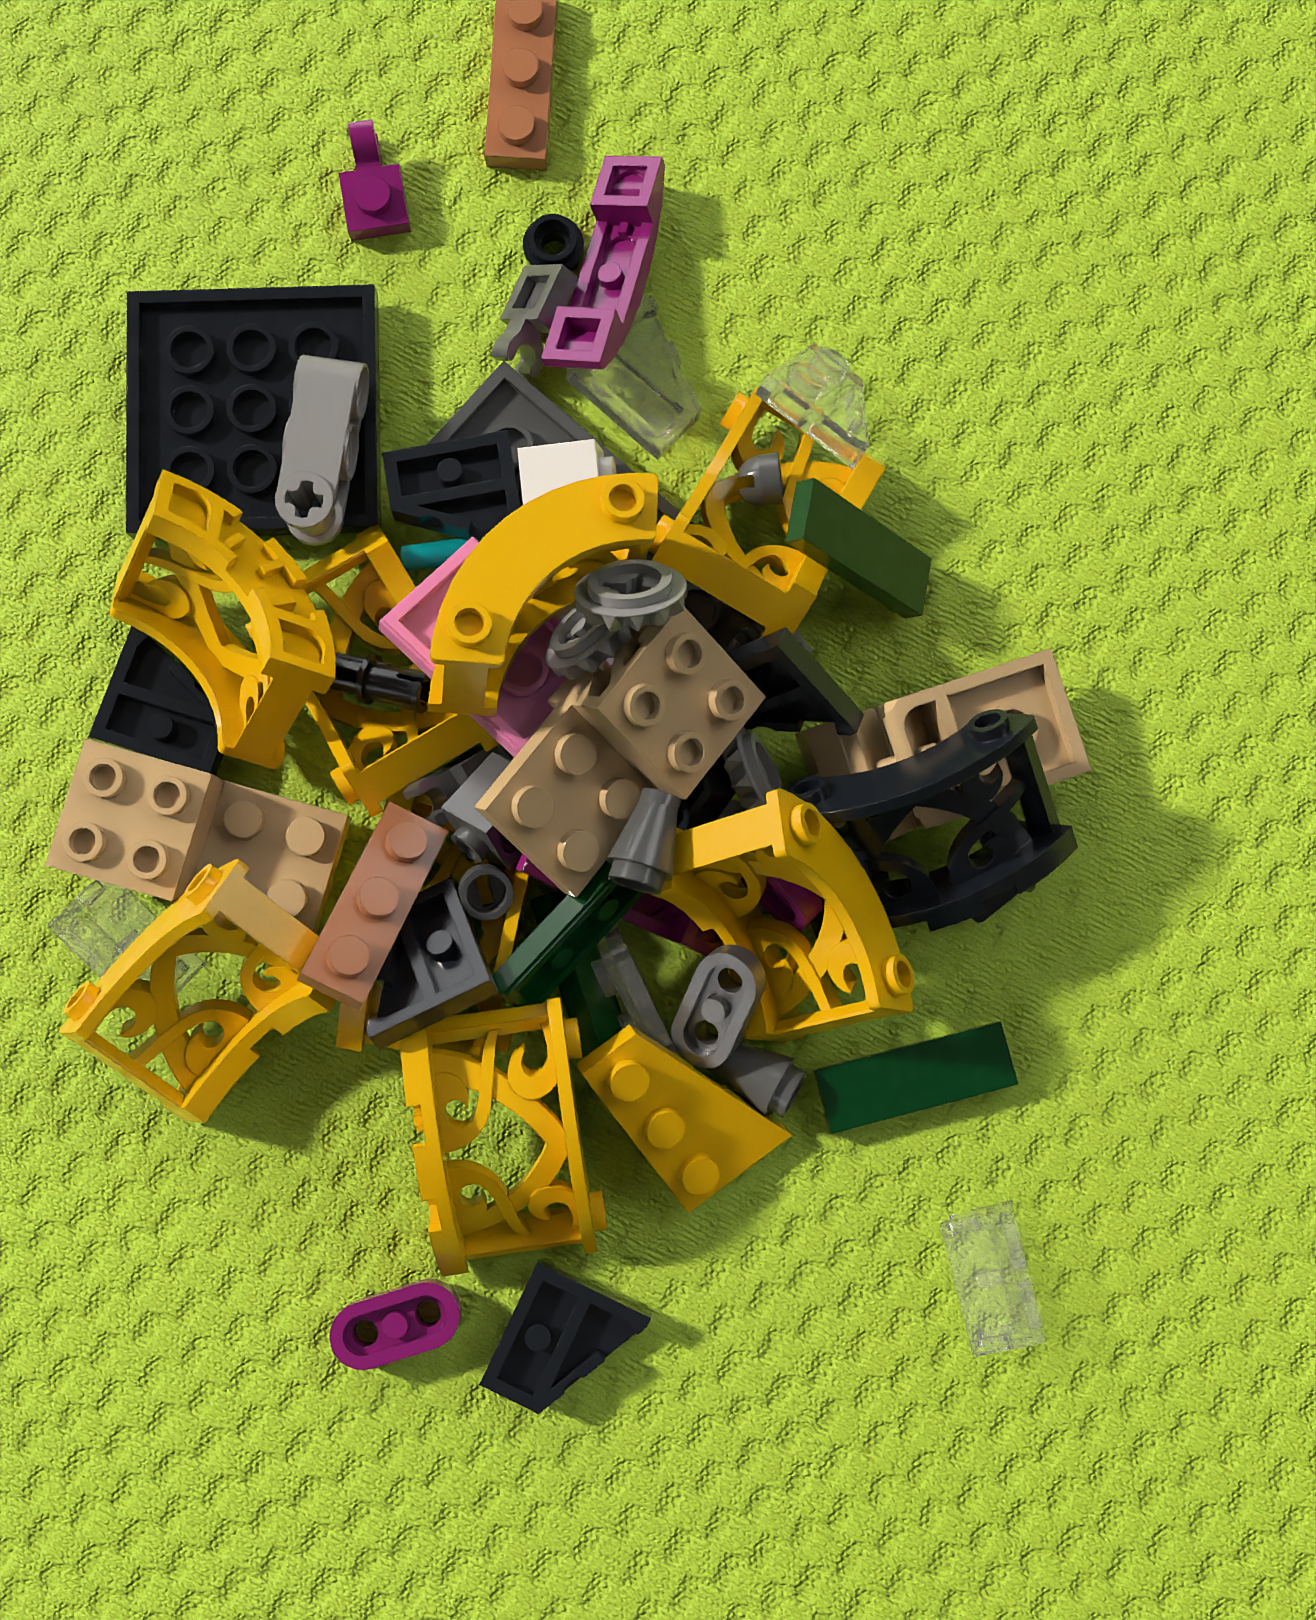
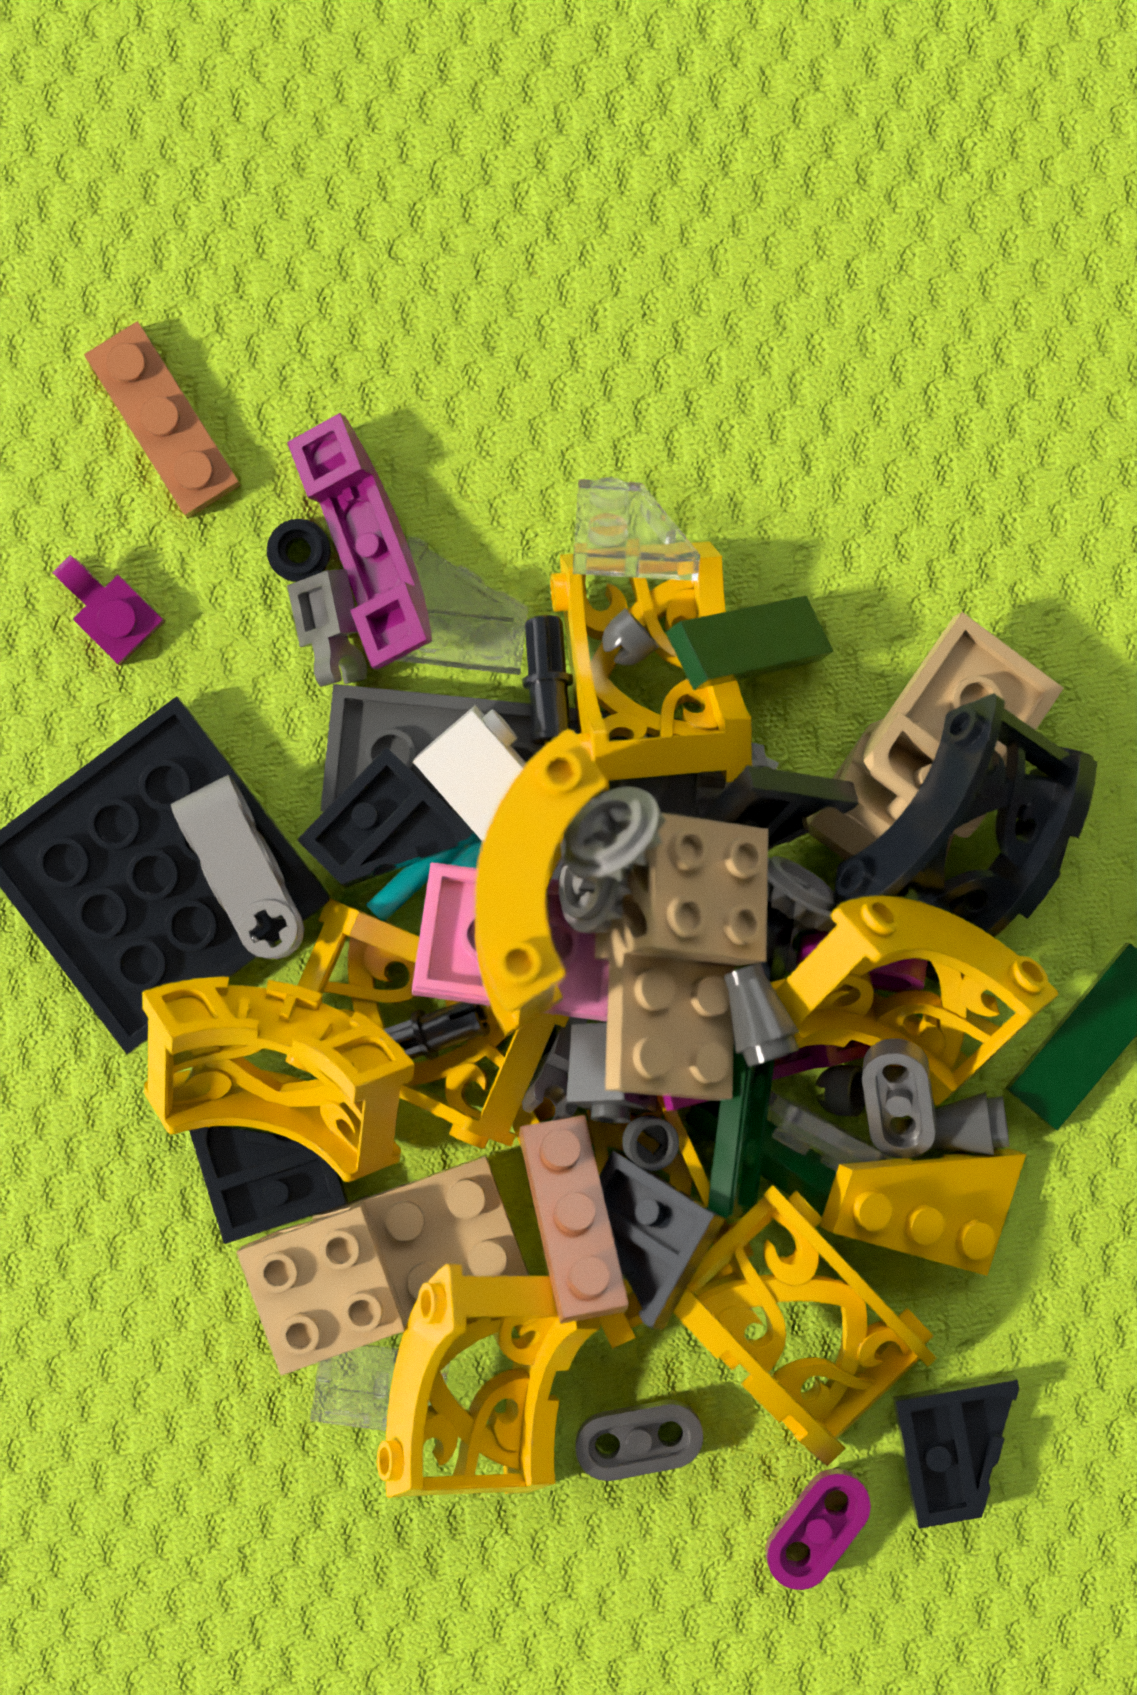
camera: 40 degrees left, 5 degrees up
(304, 1145) = (640, 1446): none -> flat silver plate
(675, 972) = (842, 1090): none -> dark grey hinge
(682, 461) = (547, 678): none -> black axle

